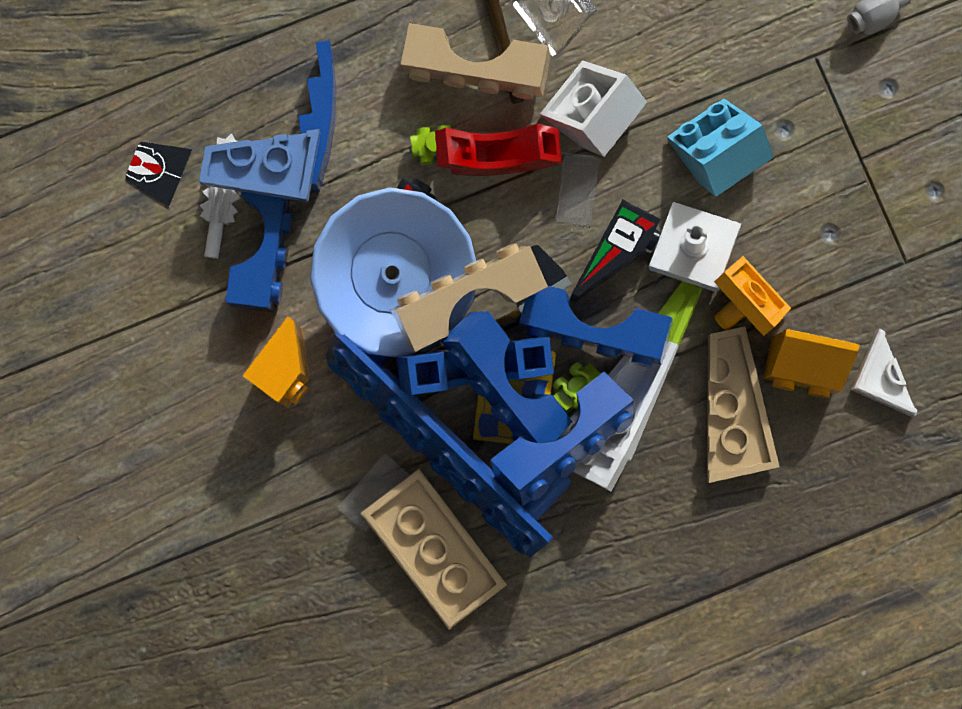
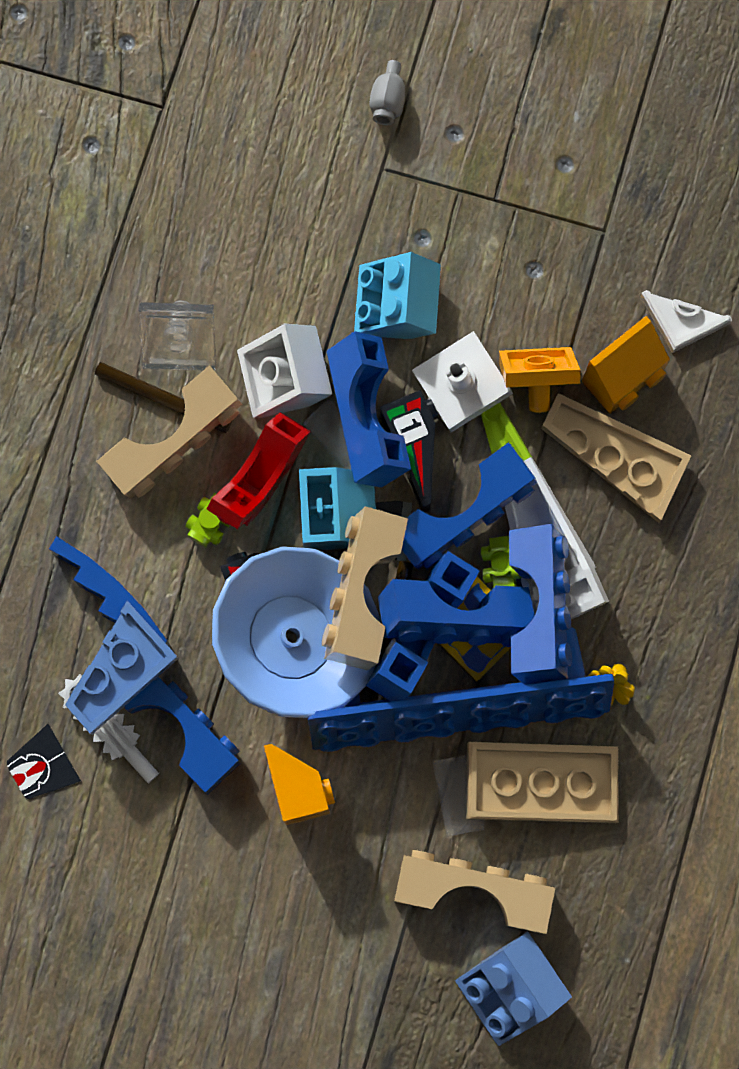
camera: 50 degrees left, 5 degrees down
(261, 647) = (513, 989): none -> medium blue slope
(331, 603) = (523, 903): none -> tan arch
(518, 218) = (328, 503): none -> medium azure slope
(558, 544) = (622, 689): none -> yellow plant
(636, 161) = (356, 371): none -> blue arch

